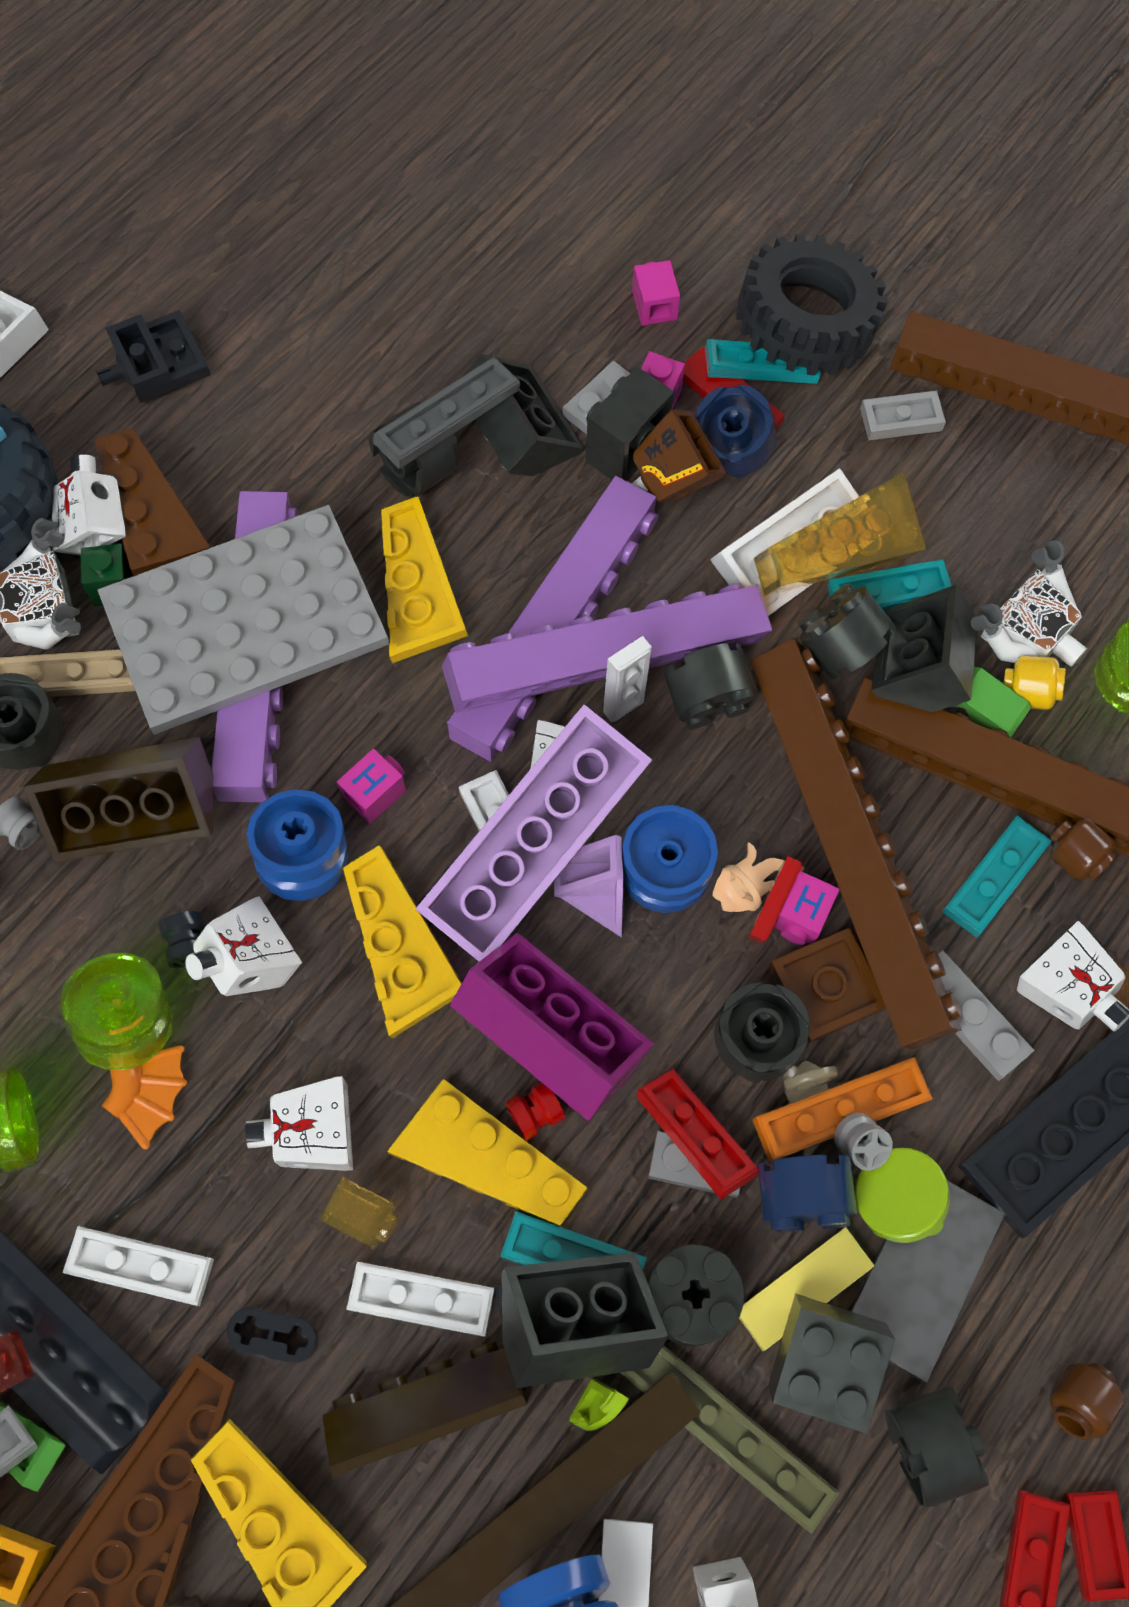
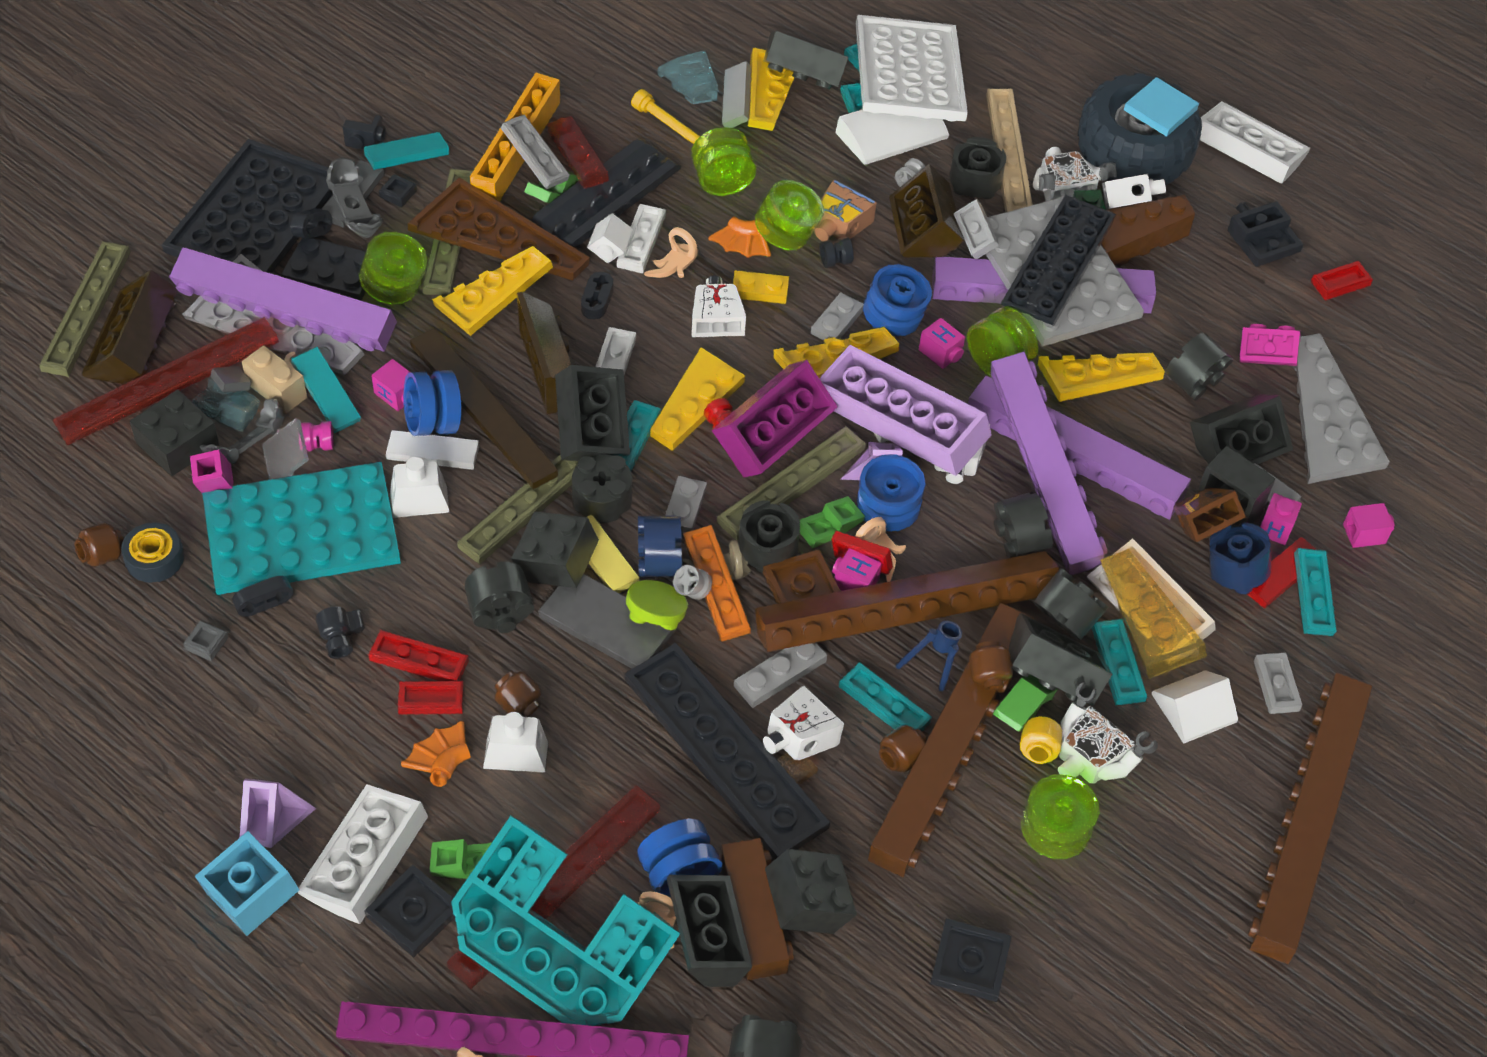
camera: 90 degrees right, 15 degrees down
(95, 925) = (844, 212): none -> nougat torso
(156, 1320) = (610, 238): none -> white brick
(178, 717) = (976, 229): none -> light grey plate
(189, 1196) = (678, 258): none -> light nougat piece
(235, 278) = (1341, 280): none -> red tile
(243, 951) = (826, 271): white torso -> none
(244, 605) = (1059, 260): none -> black plate
(250, 1061) = (761, 286): none -> yellow plate
(319, 940) = (837, 317): none -> light grey plate
(360, 1214) = (663, 331): clear yellow brick -> none
(365, 366) = (1270, 345): none -> dark pink bracket
(385, 696) = (1000, 336): none -> clear neon green wheel
(446, 412) = (1221, 367): dark grey tile -> none
(472, 316) = (1332, 423): none -> light grey wing
(597, 1406) = (544, 440): lime tile -> none
(626, 679) = (1018, 463): white tile -> none
(640, 1005) = (797, 477): none -> olive tile
(697, 1133) = (704, 496): red tile -> none
(708, 948) = (836, 516): none -> bright green slope
(799, 335) = (1350, 644): black tyre -> none
(934, 784) = (944, 641): none -> dark blue plant
(945, 506) = (1197, 704): none -> white slope
(969, 727) = (991, 665): none -> reddish brown head

